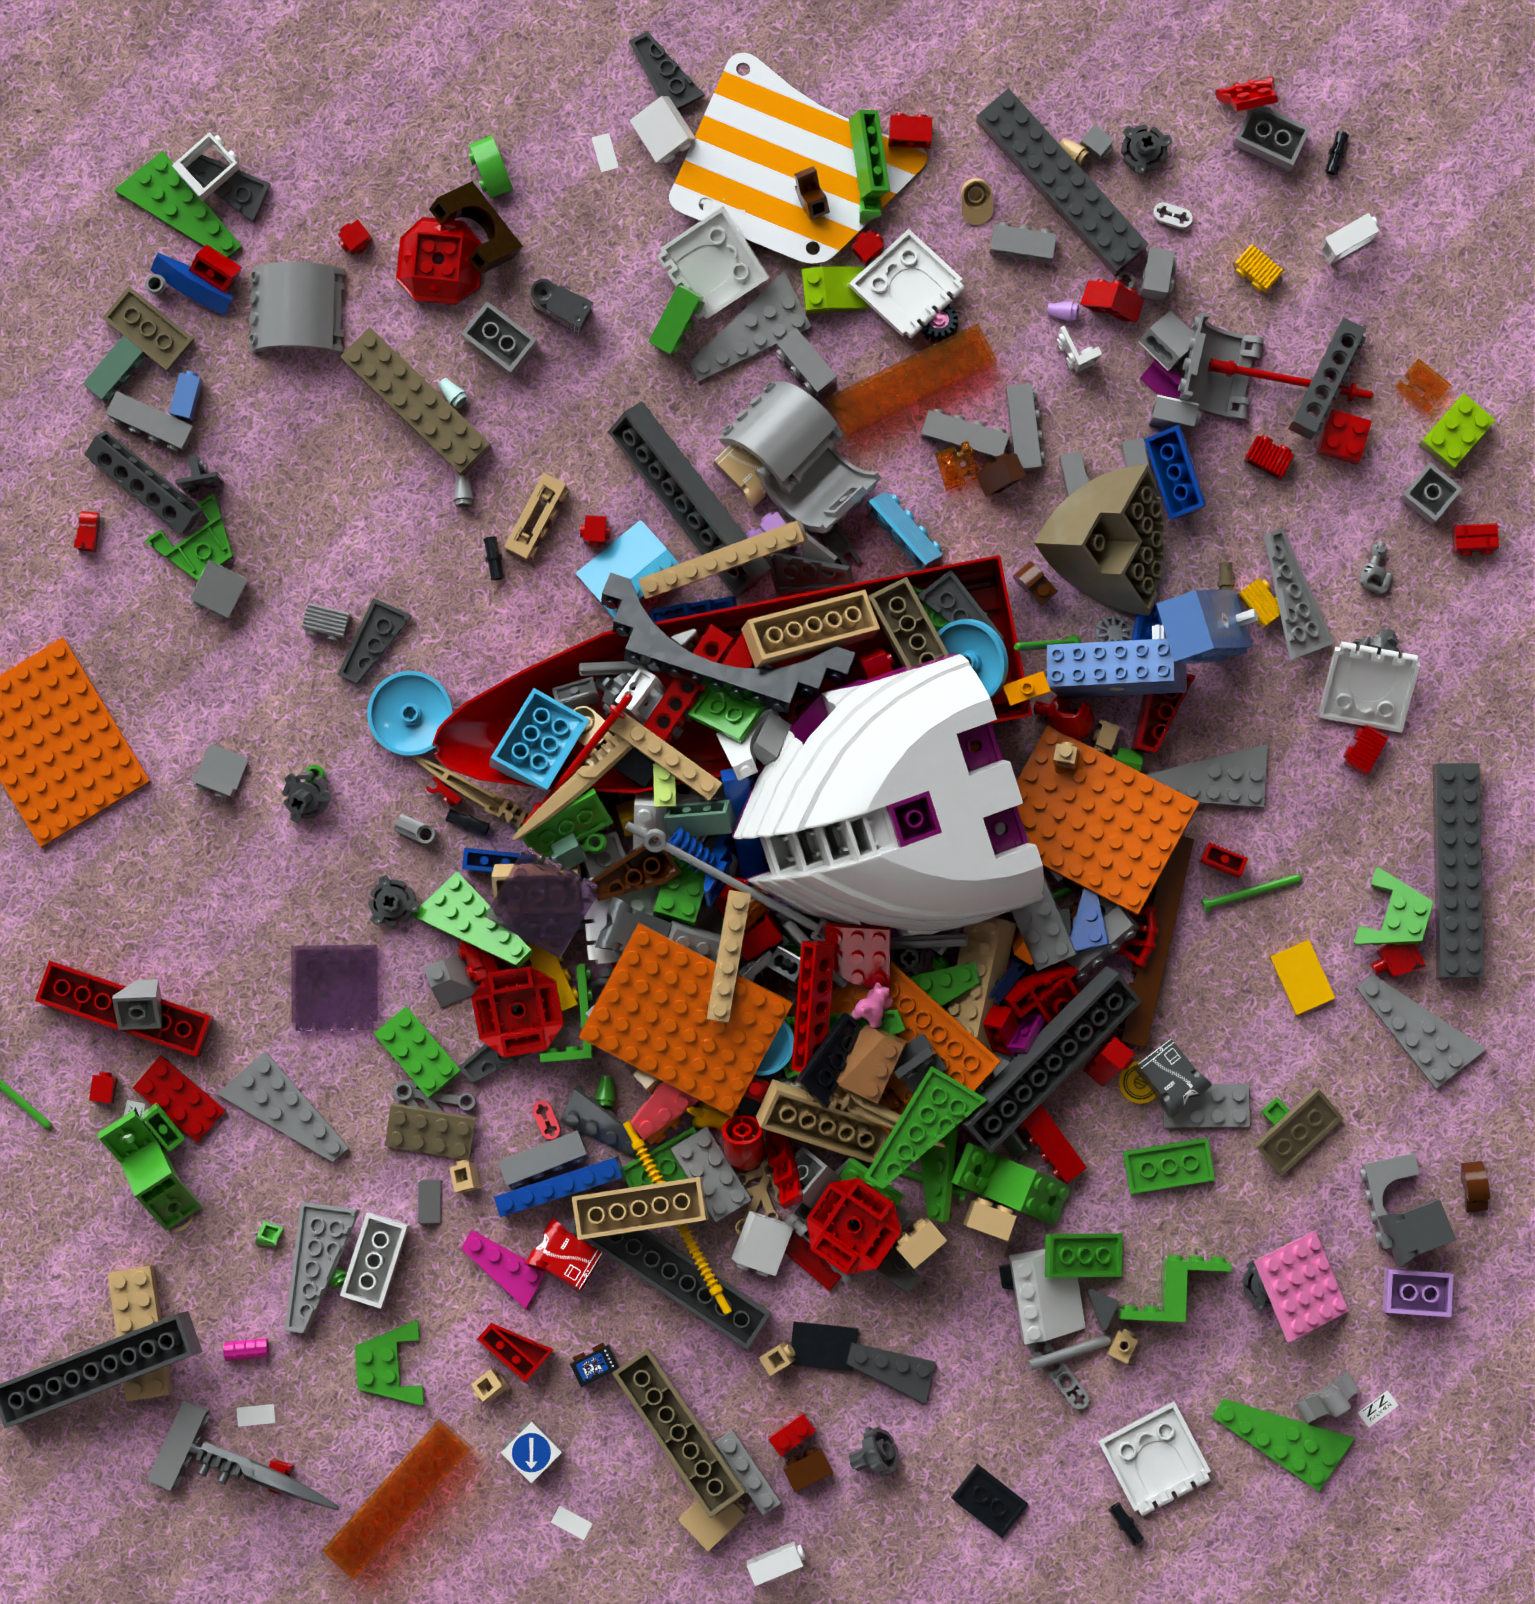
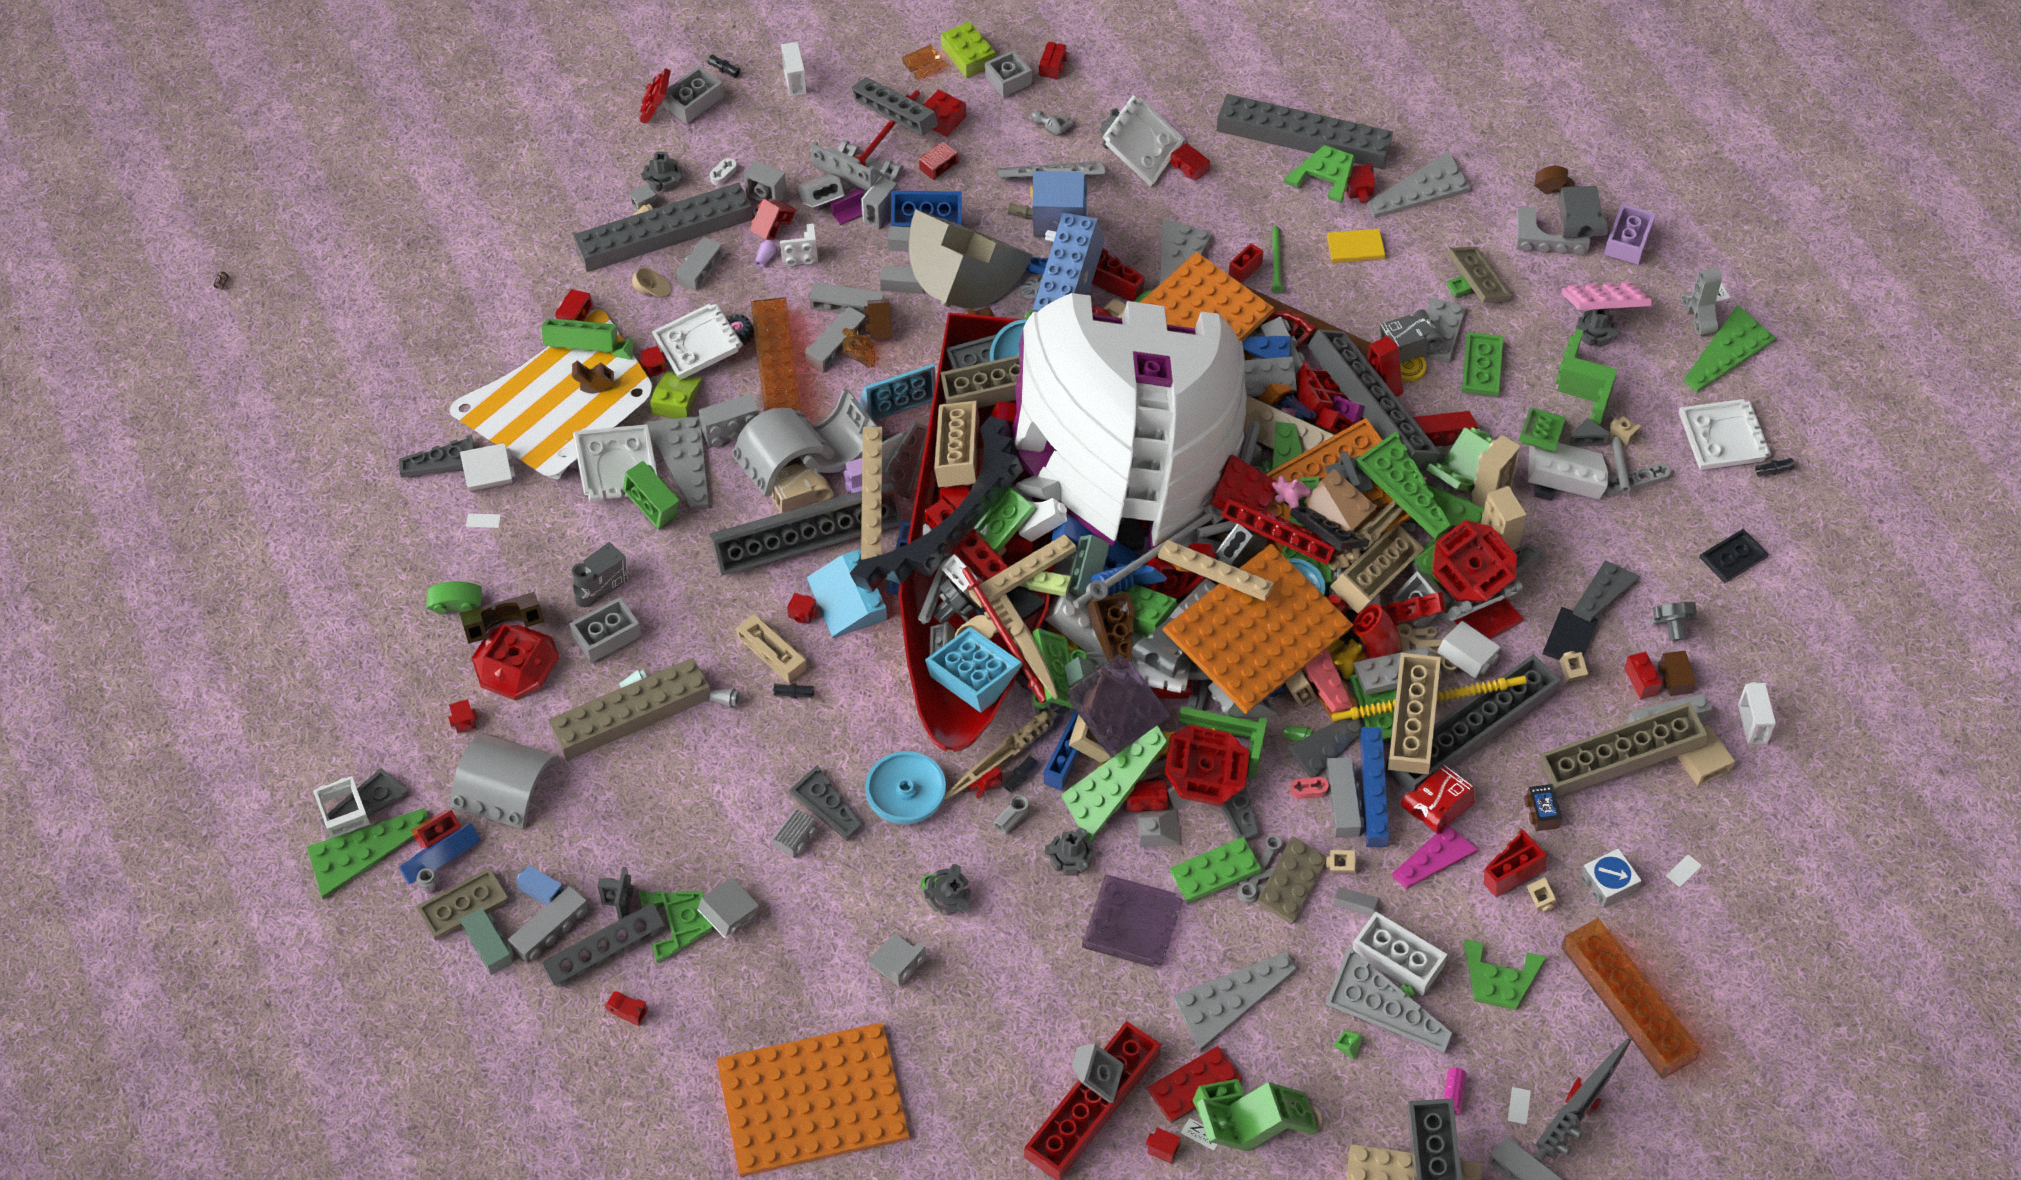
camera: 75 degrees left, 30 degrees down
(1258, 269) = (789, 130): yellow brick -> none

